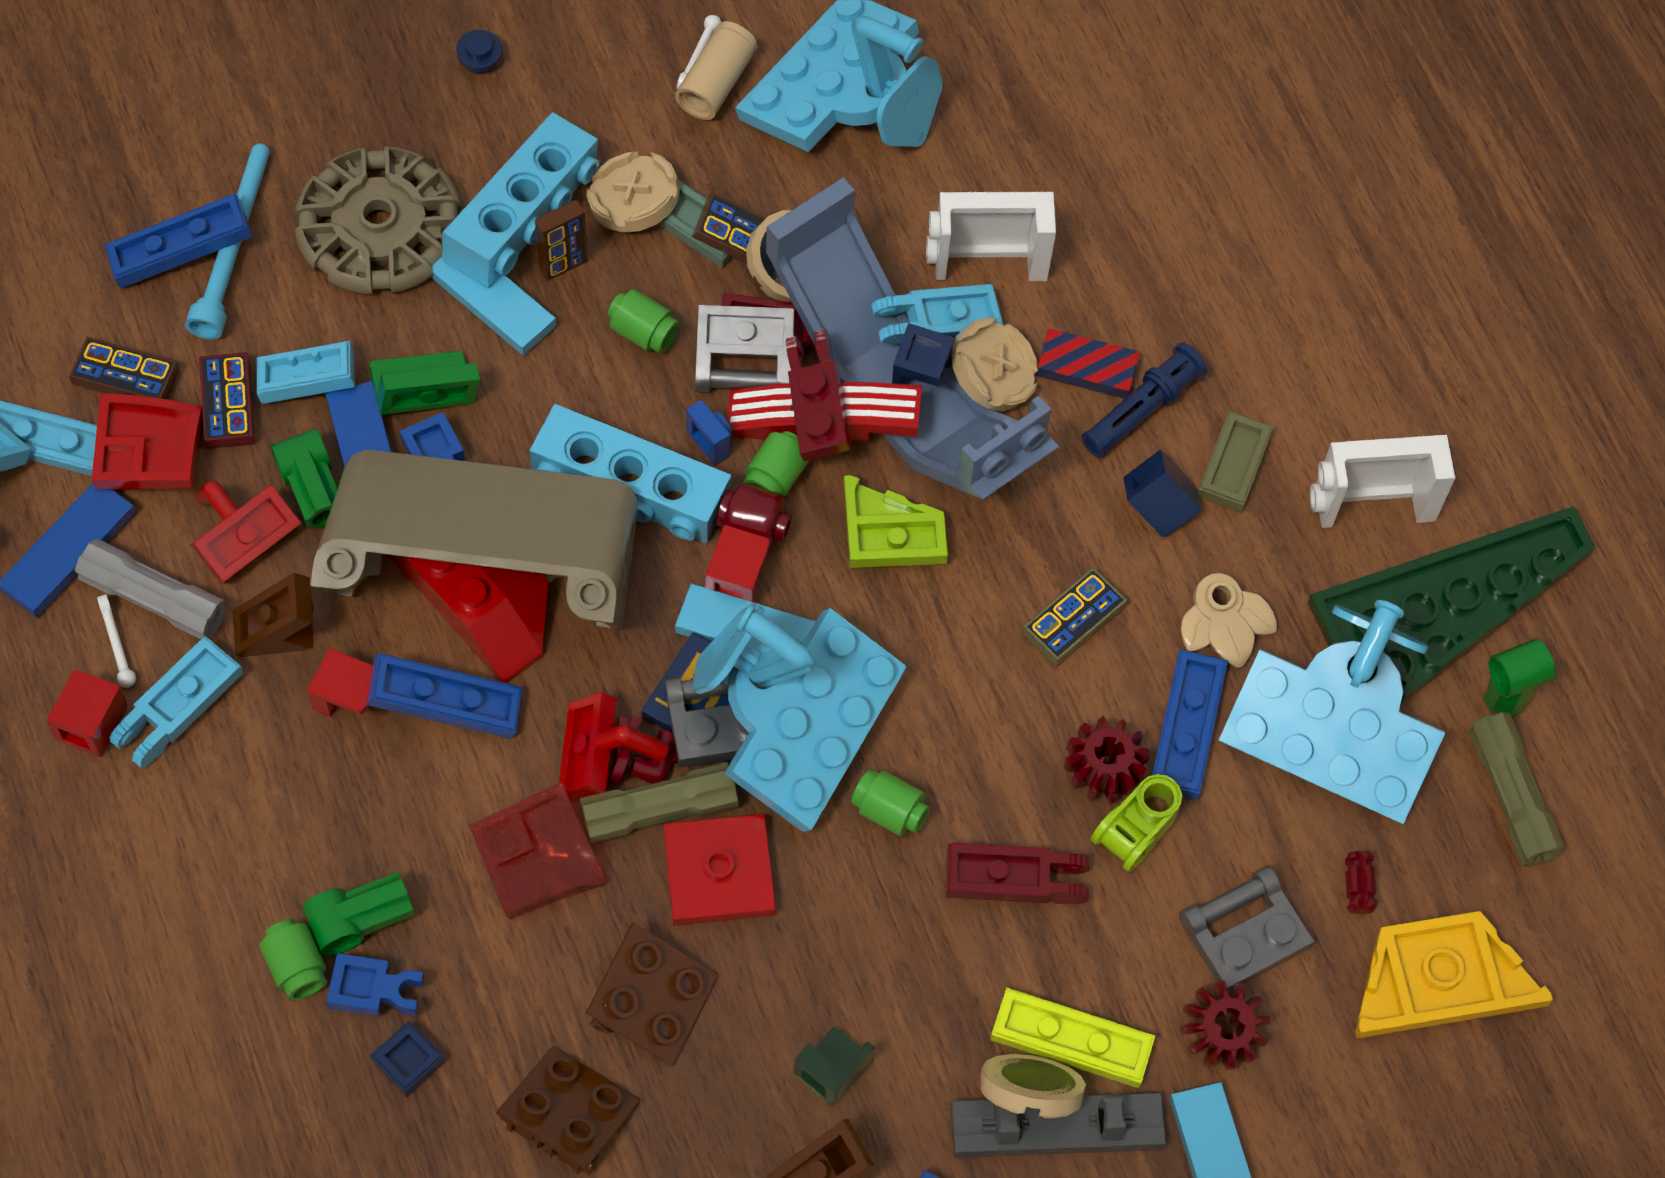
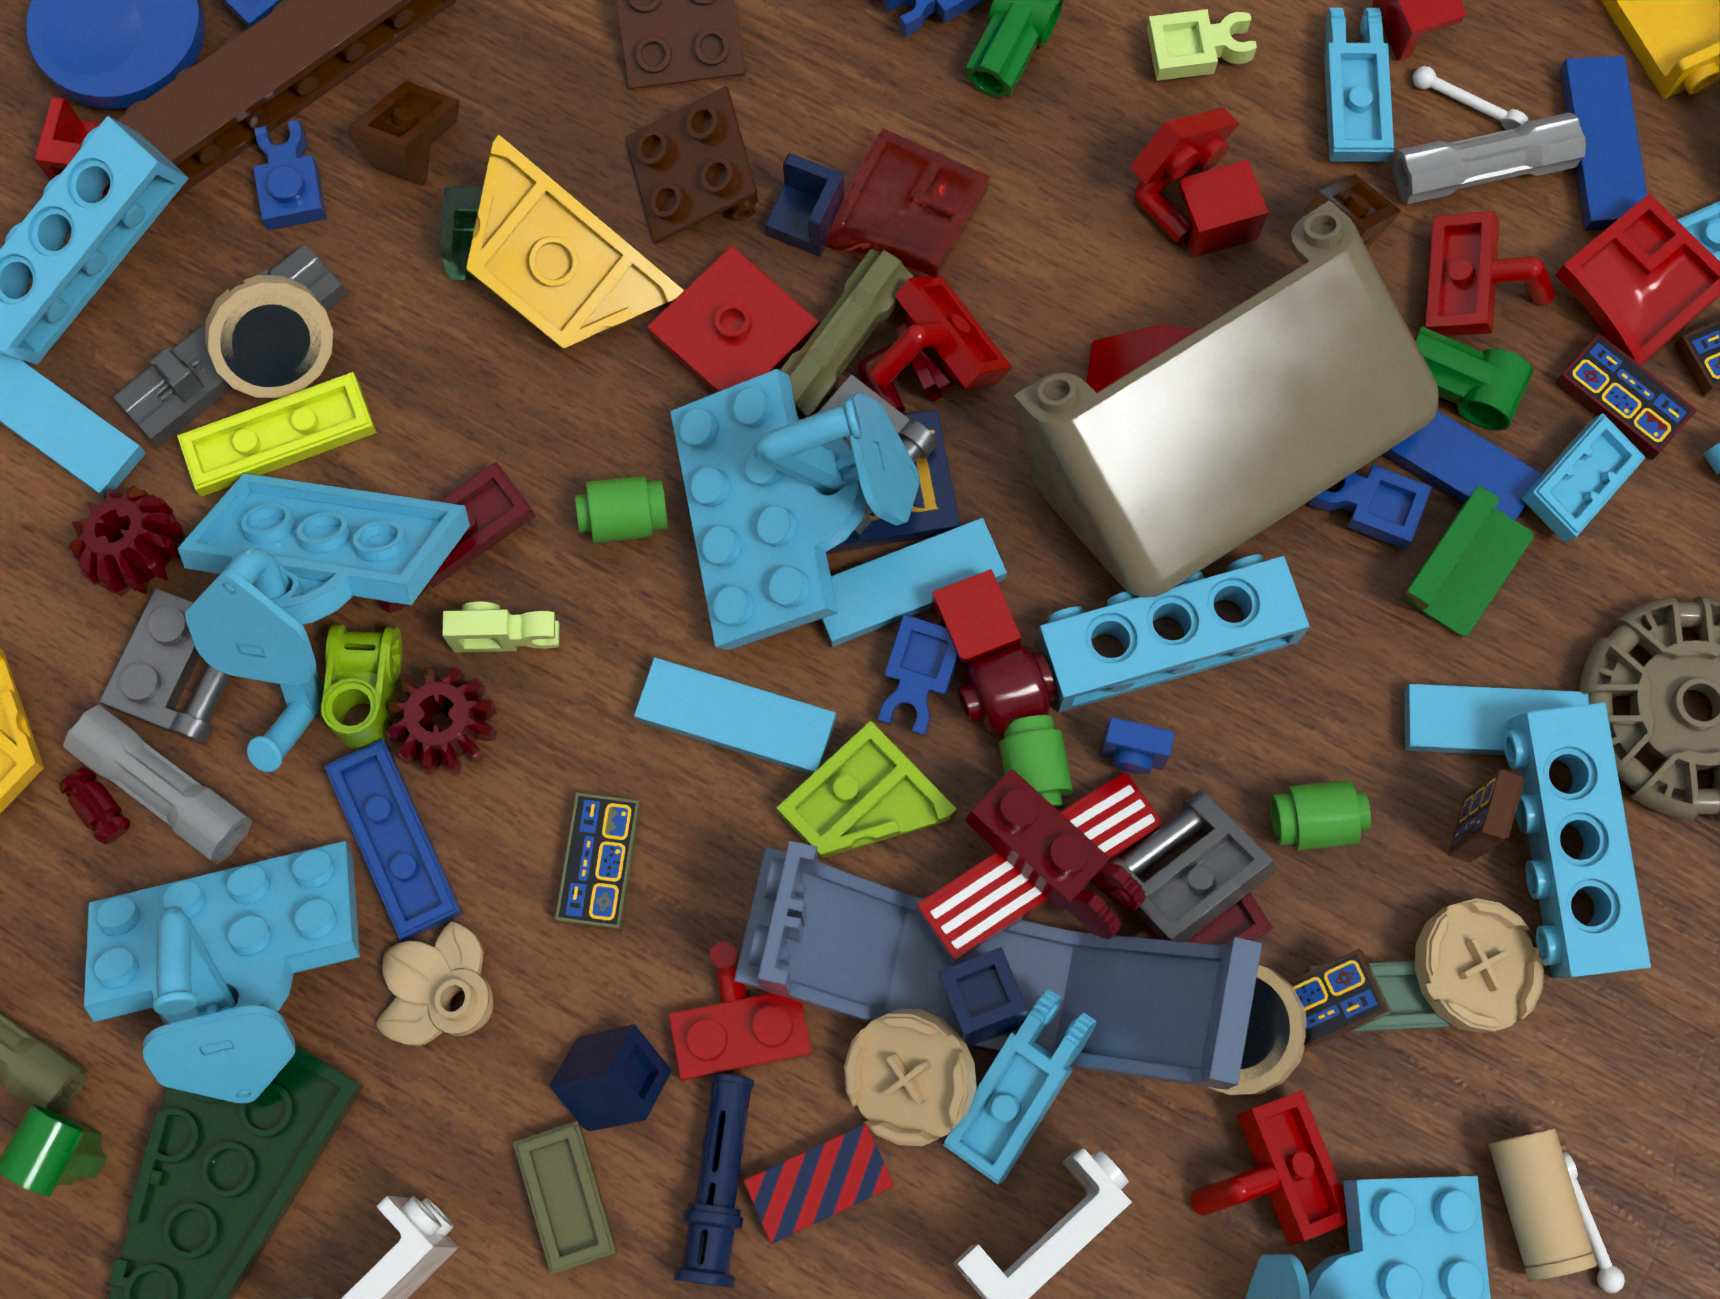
camera: 145 degrees right, 10 degrees up
(250, 814) = (1189, 45): none -> yellowish green plate
(340, 727) = (1174, 150): none -> red plate
(444, 695) = (1125, 264): blue tile -> none
(603, 901) = (806, 205): none -> dark blue panel
(793, 572) = (922, 663): none -> blue plate
(798, 991) = (555, 255): none -> yellow wing
(838, 158) = (1289, 1168): none -> red plate
(925, 634) = (735, 716): none -> medium azure tile
(1033, 790) = (489, 629): none -> yellowish green plate
(1073, 472) = (738, 1030): none -> red plate
(1111, 903) = (292, 558): none -> medium azure plate
(1322, 893) = (158, 784): none -> light grey axle

